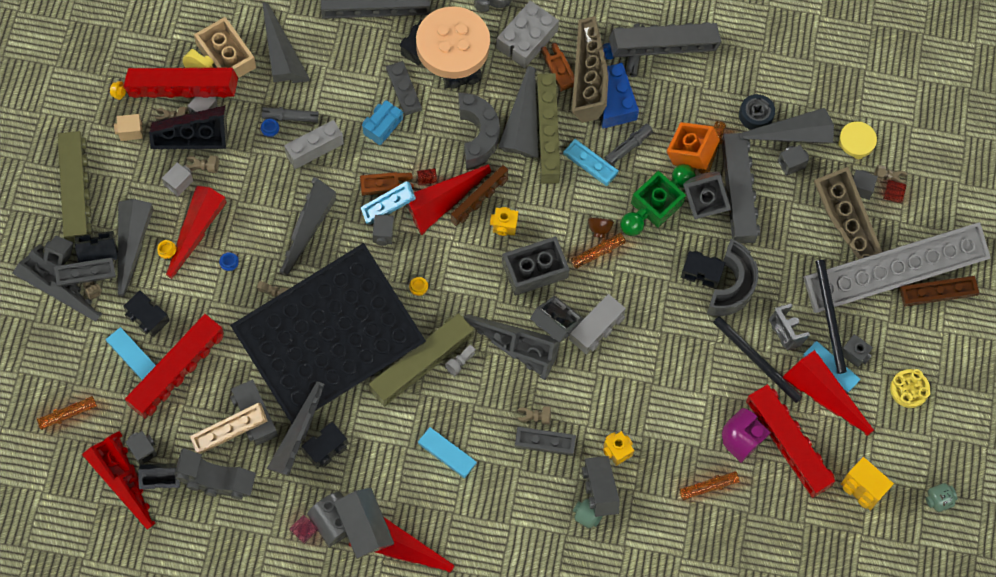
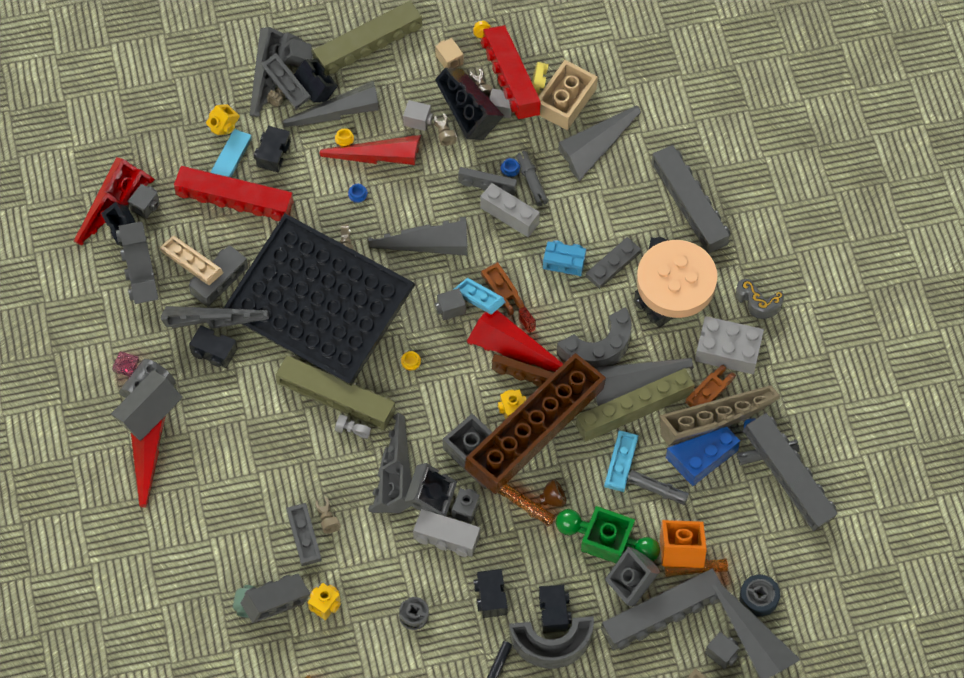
camera: 70 degrees right, 5 degrees down
(66, 413) = (146, 126): clear orange pin -> none
(93, 344) = (222, 119): none -> yellow brick
(275, 151) = (482, 180): none -> dark grey plate
(447, 452) = (254, 454): medium azure tile -> none
(541, 206) = (534, 423): none -> reddish brown brick
(578, 298) = (466, 505): none -> dark grey brick
(658, 380) = (414, 612): none -> dark grey wheel
(668, 312) = (491, 593): none -> black brick

